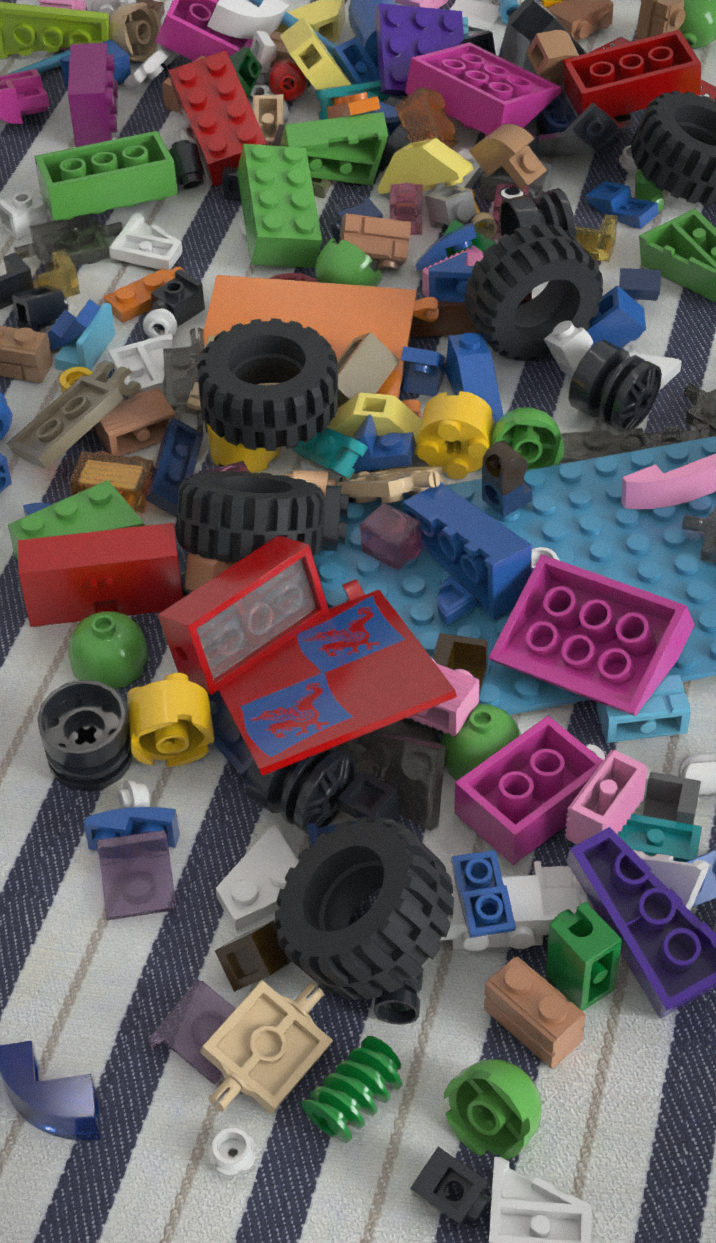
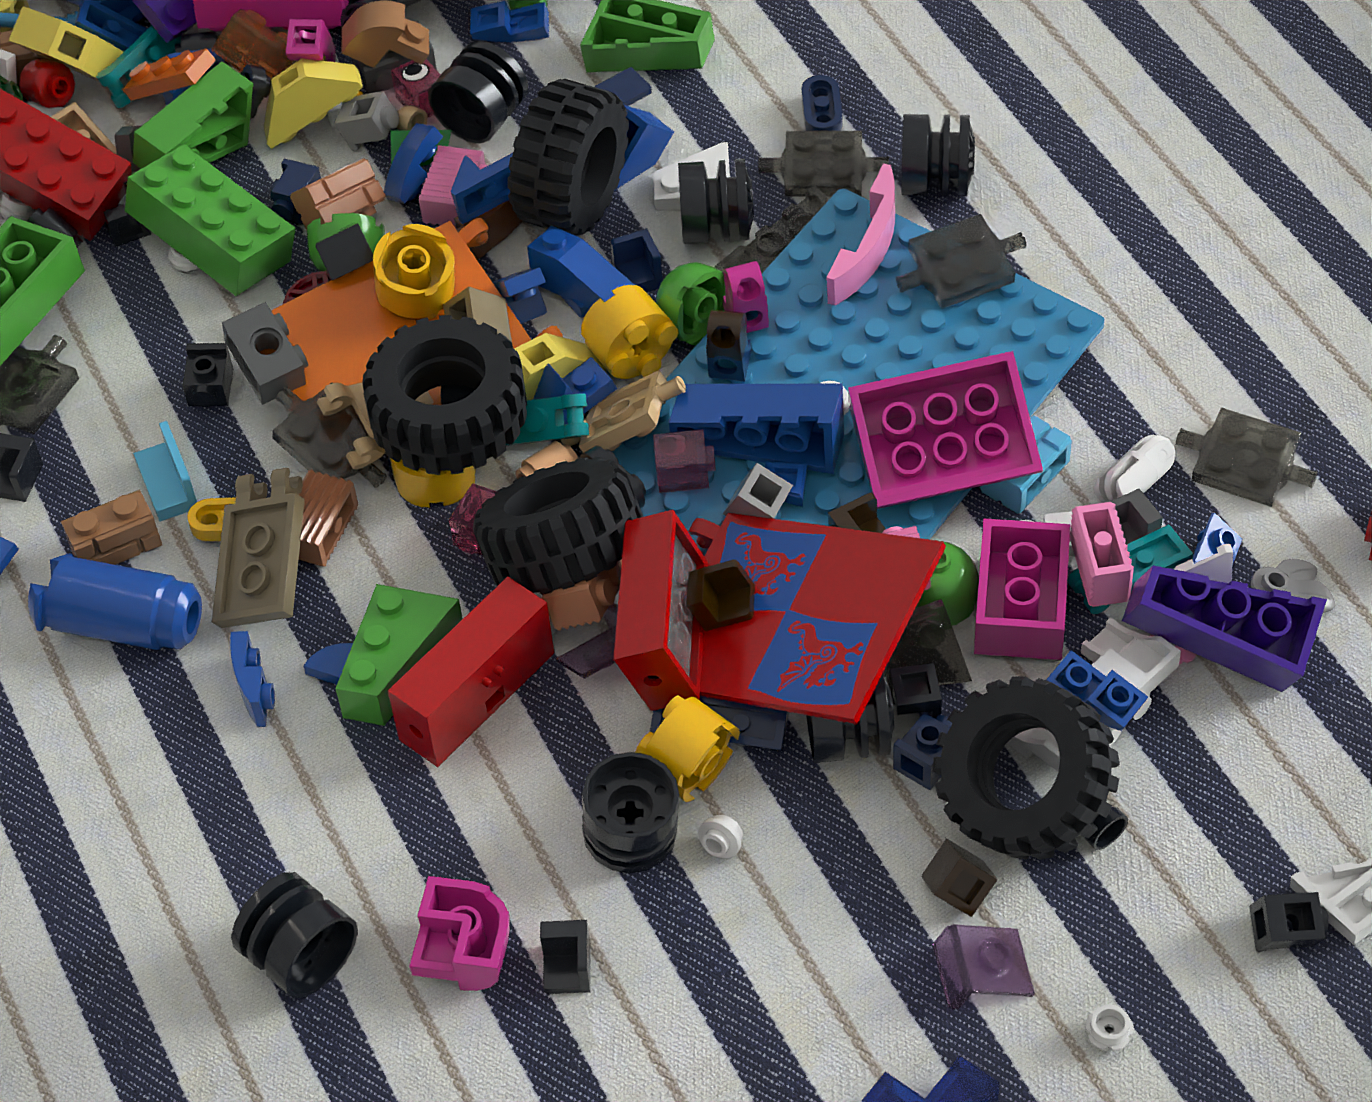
camera: 40 degrees left, 5 degrees up
(39, 306) = (80, 472): black brick -> none
(62, 277) = (61, 433): clear yellow panel -> none
(70, 327) = (146, 469): blue slope -> none
(108, 649) = (542, 734): bright green cylinder -> none
(126, 474) = (348, 586): clear orange brick -> none
(131, 822) = (739, 869): blue slope -> none
(136, 297) = (159, 391): orange hinge -> none
(136, 875) = (795, 893): clear purple piece -> none
(145, 362) = (249, 452): white wing -> none
(146, 245) = (106, 342): white wing -> none
(162, 317) = (215, 405): white plate -> none
(173, 464) = (403, 533): dark blue plate -> none
(207, 296) = (260, 330): none -> dark grey brick
(255, 881) = (893, 818): white wing -> none
(266, 1046) = (1052, 933): tan plate -> none
(295, 632) = (720, 595): none -> dark brown panel
(323, 264) = (344, 251): none -> black panel
(348, 302) = (414, 271): none -> yellow brick
(353, 1087) = (1149, 909): green piece -> none
(406, 590) = (759, 494): none -> light grey brick
(407, 205) = (324, 145): clear pink brick -> none
(454, 131) = (309, 45): none -> dark pink leg
(494, 1108) = (1260, 842): bright green cylinder -> none
(524, 390) = (638, 259): none -> dark blue panel
(534, 1012) = (1206, 753): nougat brick -> none
(553, 451) = (746, 293): none -> dark pink leg
(568, 345) = (636, 184): white brick -> none
(582, 956) = (1201, 684): green brick -> none
(601, 241) = (537, 66): clear yellow panel -> none

